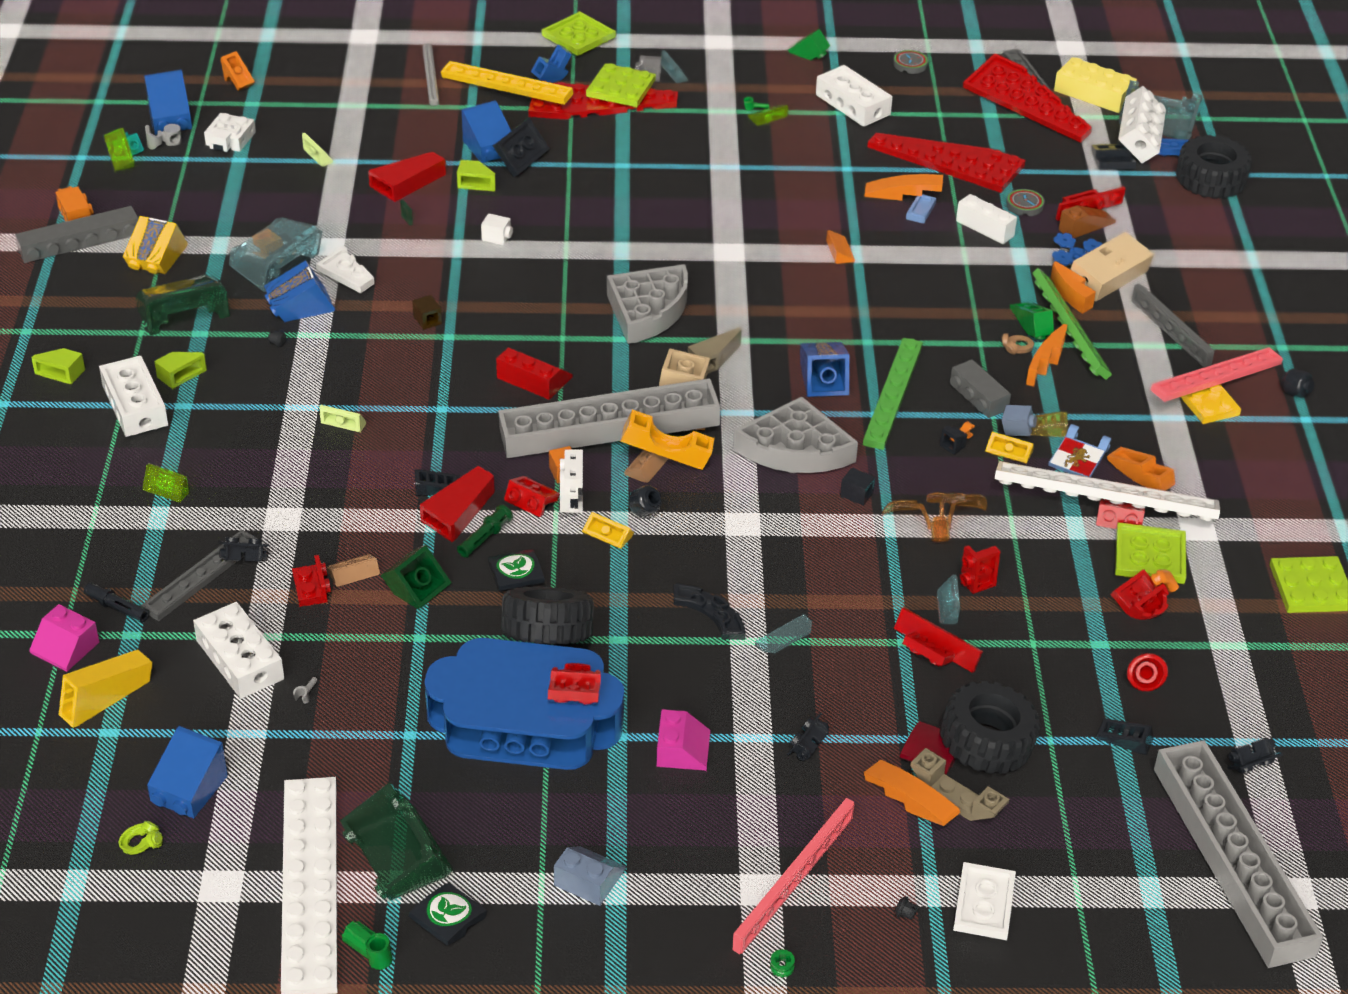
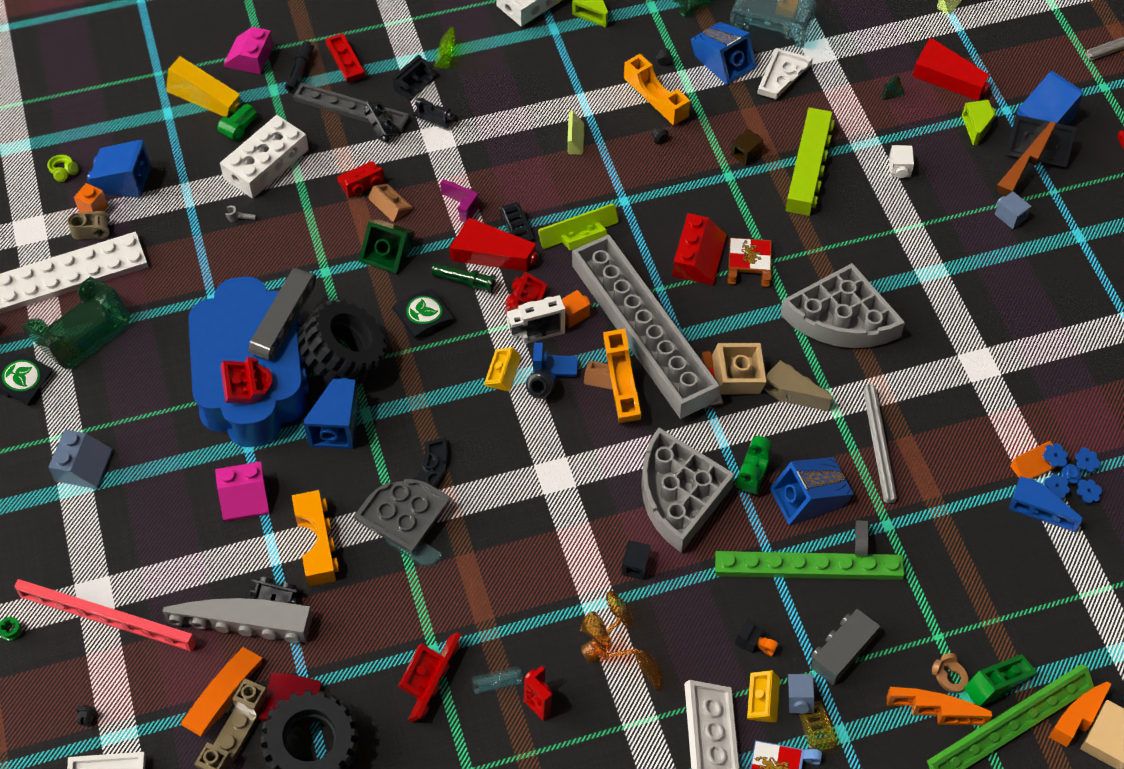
camera: 75 degrees right, 15 degrees up
(127, 563) = (345, 58): none -> red plate
(171, 668) = (235, 125): none -> green piece
(192, 516) = (413, 77): none -> black hinge
(219, 811) = (90, 199): none -> orange brick
(250, 512) = (434, 114): none -> black hinge
(254, 821) = (88, 225): none -> dark tan piece
(348, 343) = (641, 77): none -> light orange arch
(376, 364) = (660, 135): none -> black piece
(385, 506) = (467, 197): none -> magenta bracket
(465, 280) = (809, 160): none -> lime brick
(472, 439) = (579, 229): none -> lime bracket
(500, 641) = (282, 314): none -> dark grey beam
(539, 149) = (1032, 155): none -> dark orange slope
(557, 346) = (749, 257): none -> flag
(583, 185) = (1012, 210): none -> sand blue brick
(617, 494) = (556, 364): none -> blue bracket
(625, 645) = (334, 416): none -> blue slope
(755, 623) = (403, 511): none -> dark grey plate
(784, 390) = (754, 465): none -> green piece
(785, 695) = (318, 562): none -> light orange arch
(788, 322) = (879, 444): none -> light grey axle
(834, 759) = (246, 617): none -> light grey slope
(859, 232) = (1071, 474): none -> blue plant
(881, 253) = (1042, 504): none -> blue slope
(882, 351) = (861, 538): none -> dark grey beam

